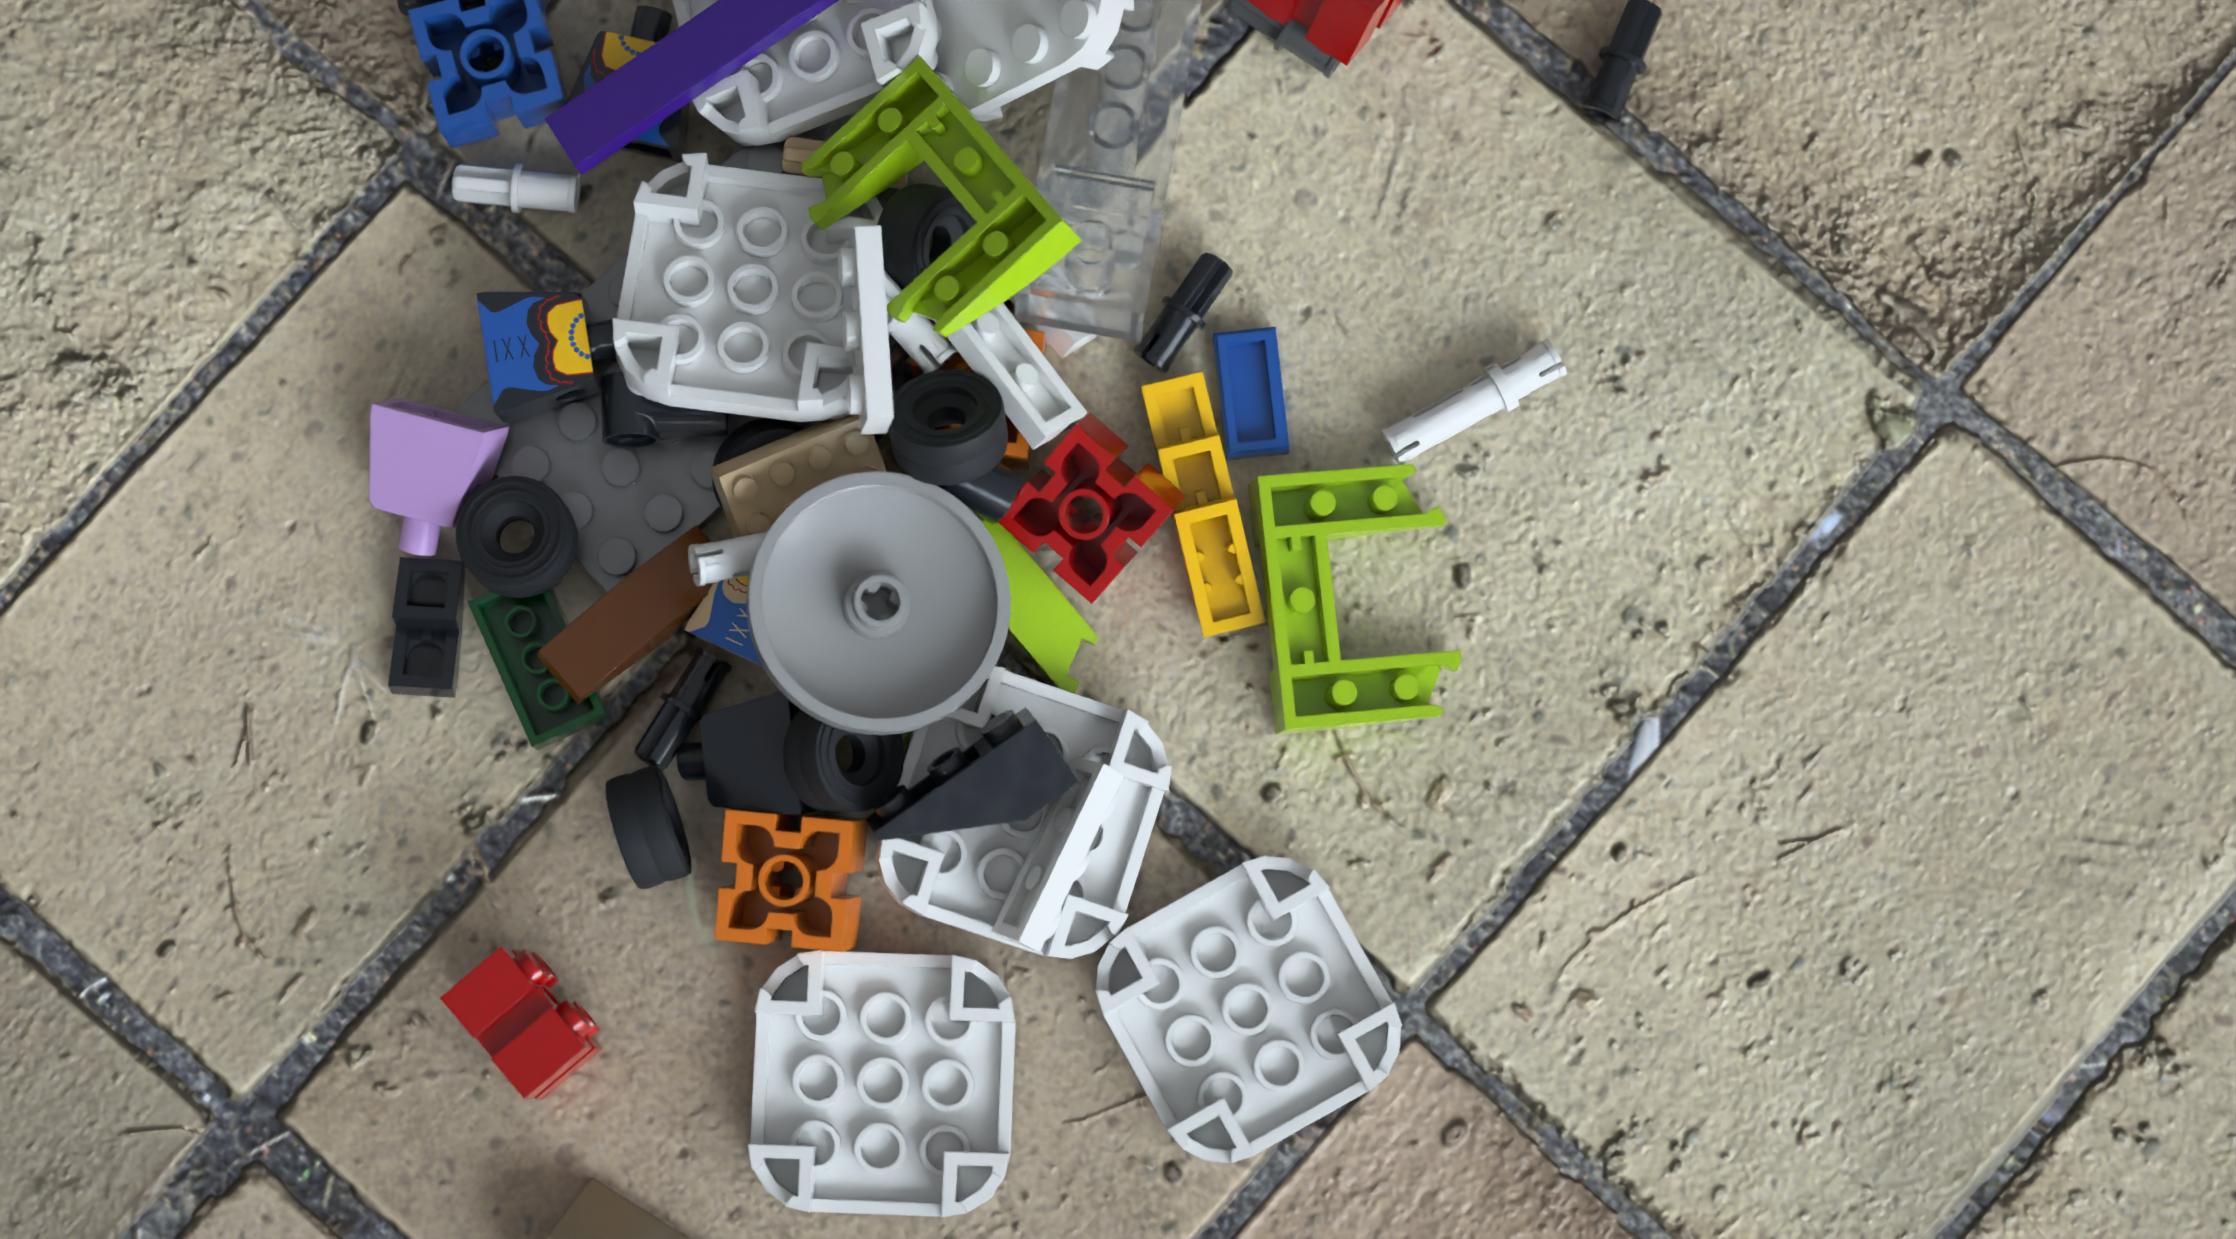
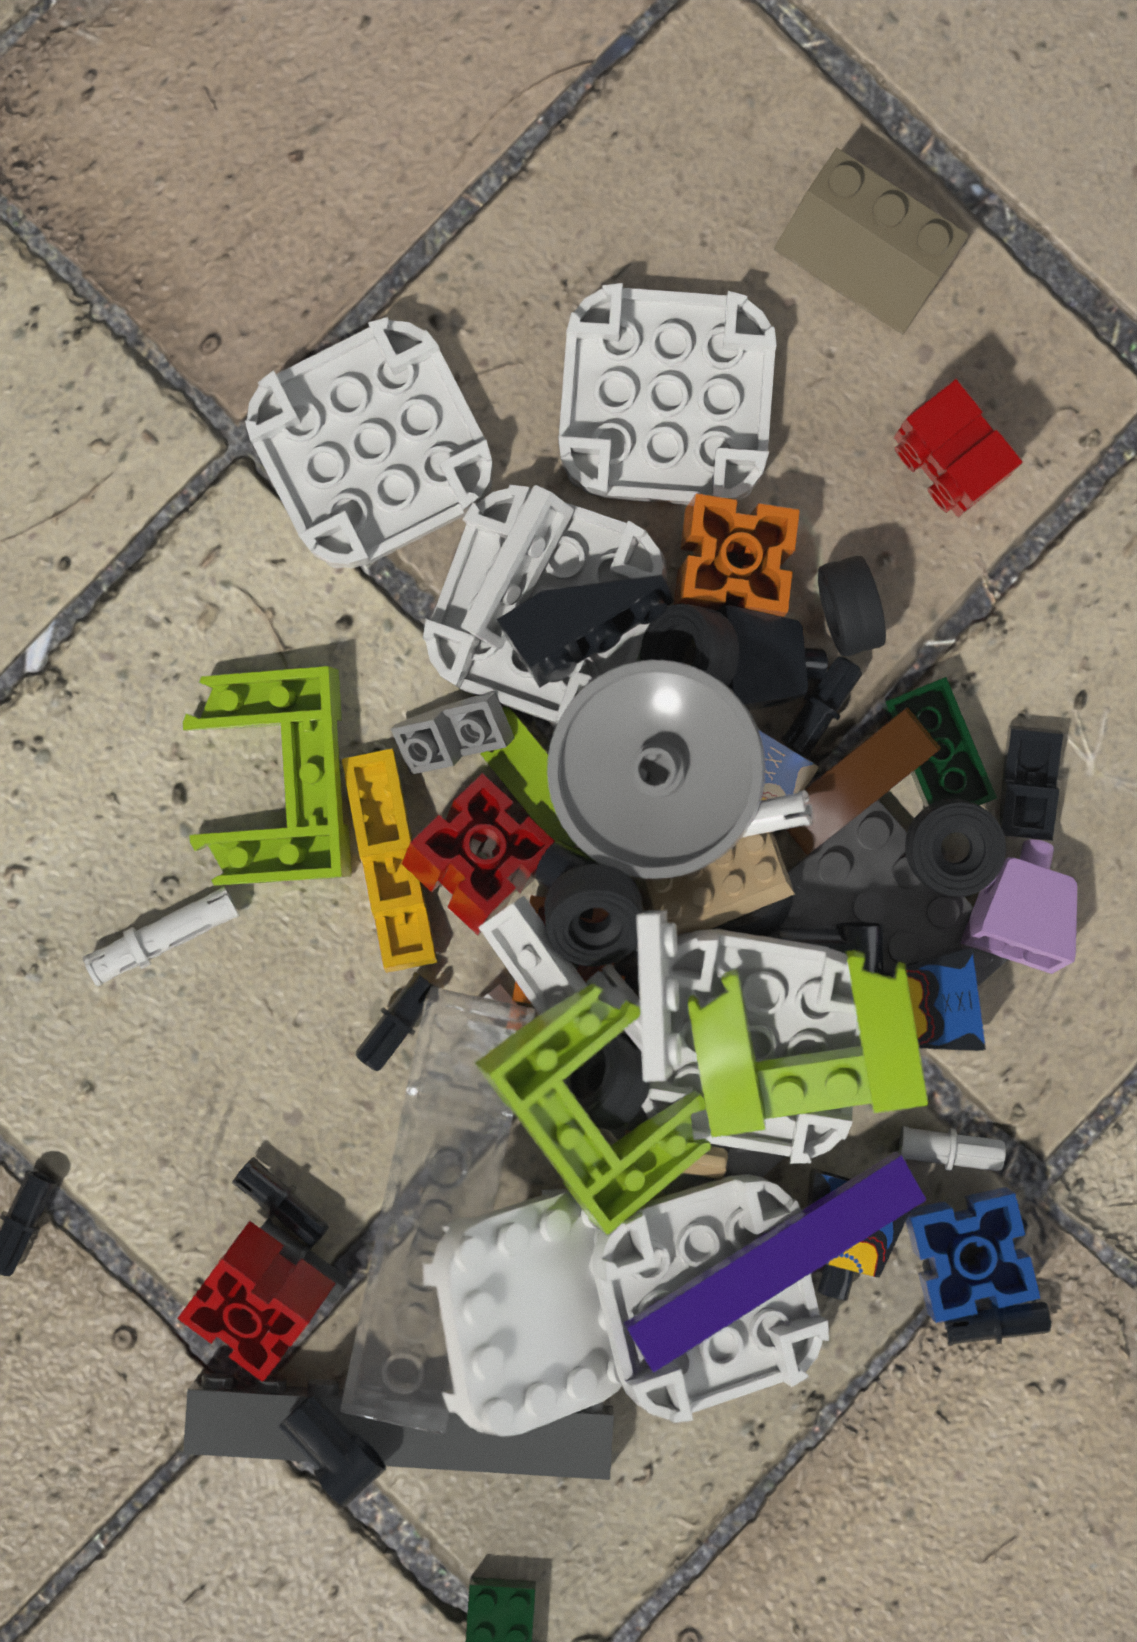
camera: 170 degrees left, 5 degrees up
(602, 257) = (747, 1092): none -> lime wedge
(1135, 659) = (452, 731): none -> light grey slope
(1251, 393) = (345, 952): blue tile -> none
(1314, 96) = (280, 1201): none -> black axle

